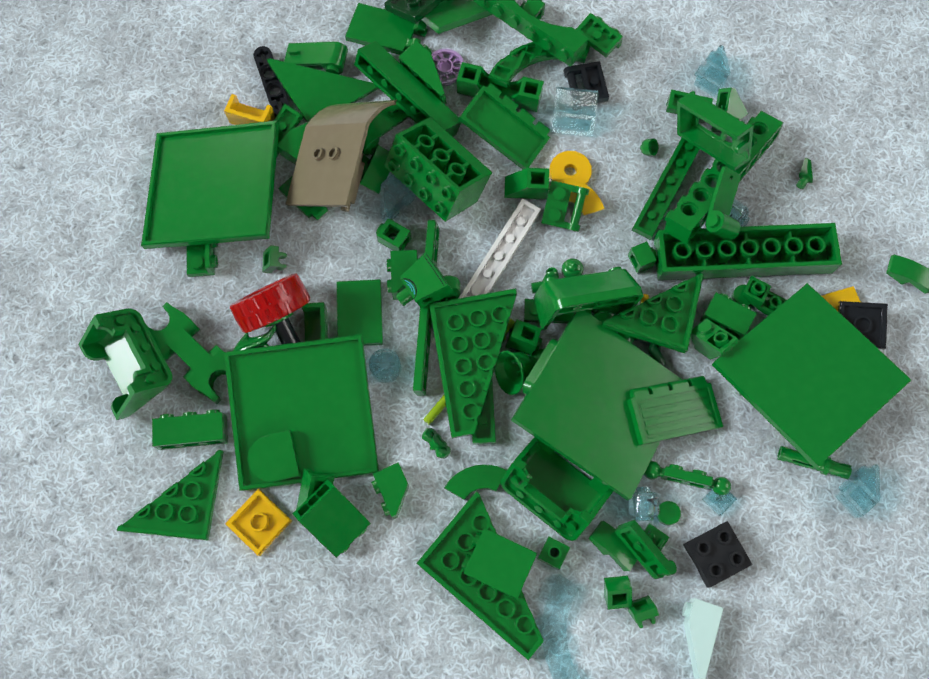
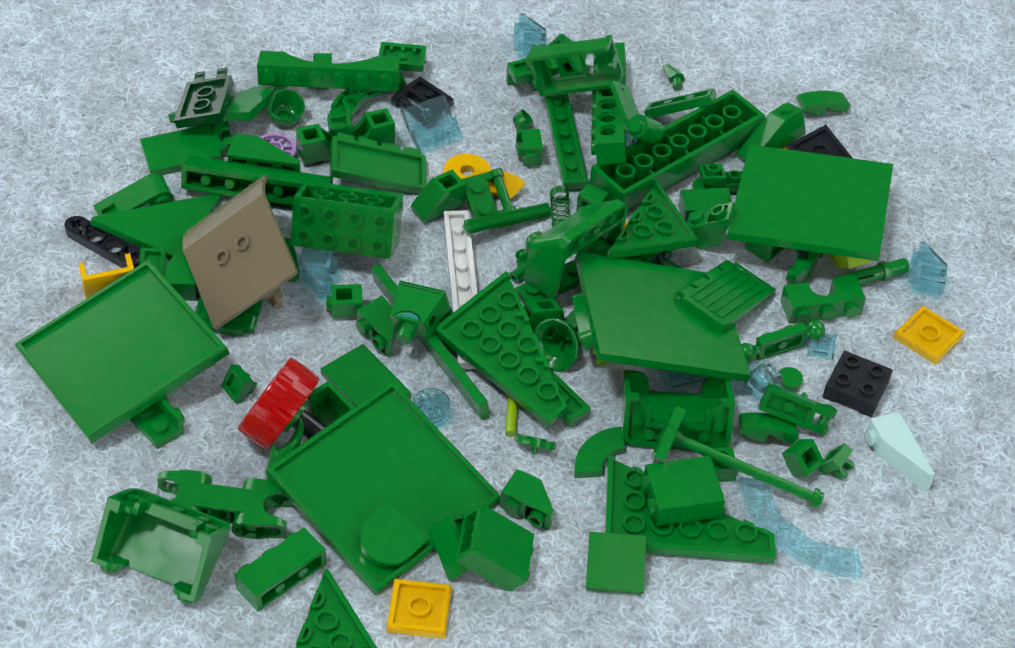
camera: 40 degrees left, 25 degrees down
(411, 583) = (616, 562): none -> green tile
(477, 34) = (286, 107): none -> green hair
(522, 516) = (672, 436): none -> green tile
(564, 233) = (507, 218): none -> green axle
(598, 263) = (554, 190): none -> green piece
(633, 177) = (529, 146): none -> green brick
(732, 456) = (804, 305): none -> green arch
(752, 425) = (803, 268): none -> green slope
(783, 209) = (680, 103): none -> green tile
(815, 546) = (929, 334): none -> yellow tile
(842, 281) = (777, 129): none -> green slope

